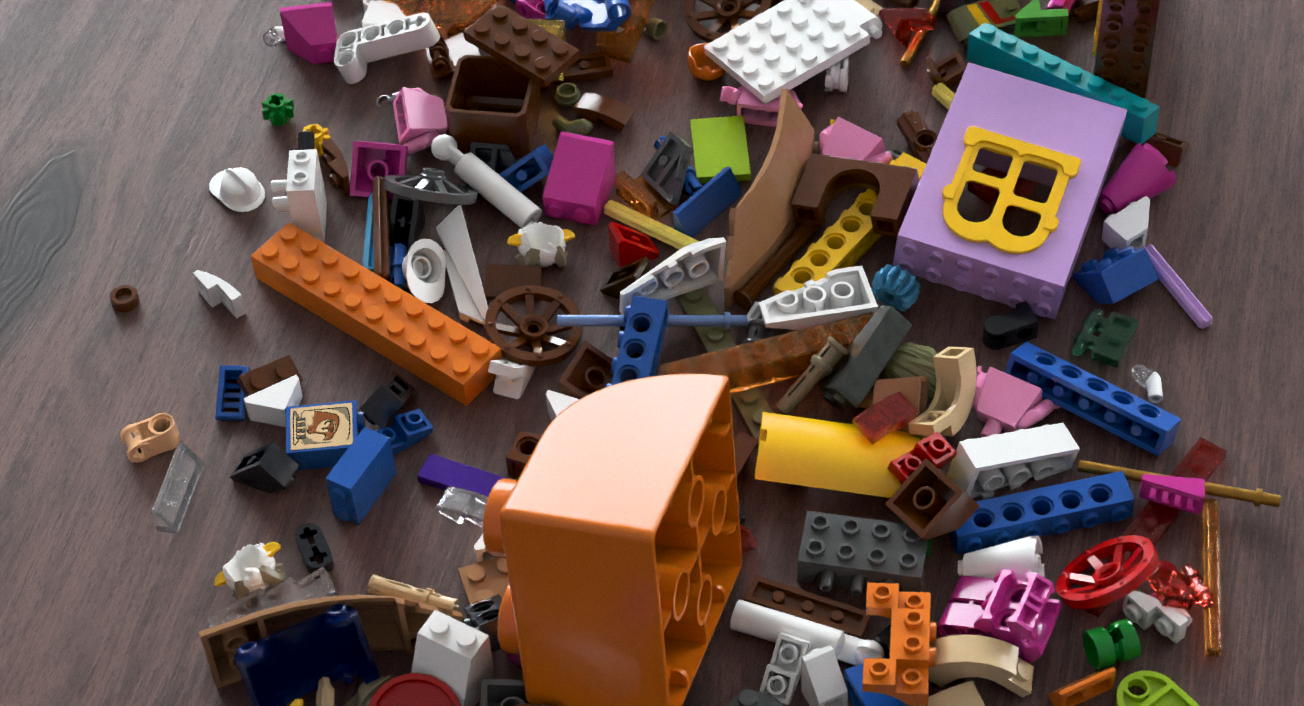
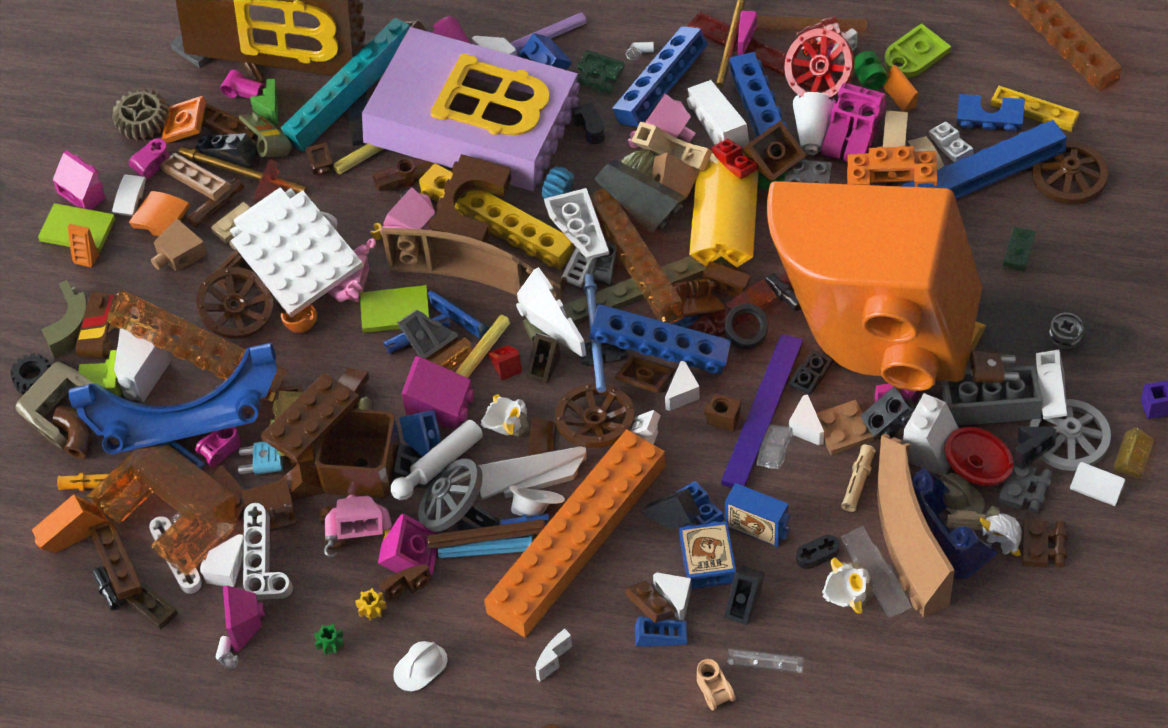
camera: 90 degrees left, 5 degrees up
(304, 189) = (455, 585): white piece -> none
(820, 366) = (643, 221): dark tan pin -> none
(884, 416) = (699, 176): clear red slope -> none

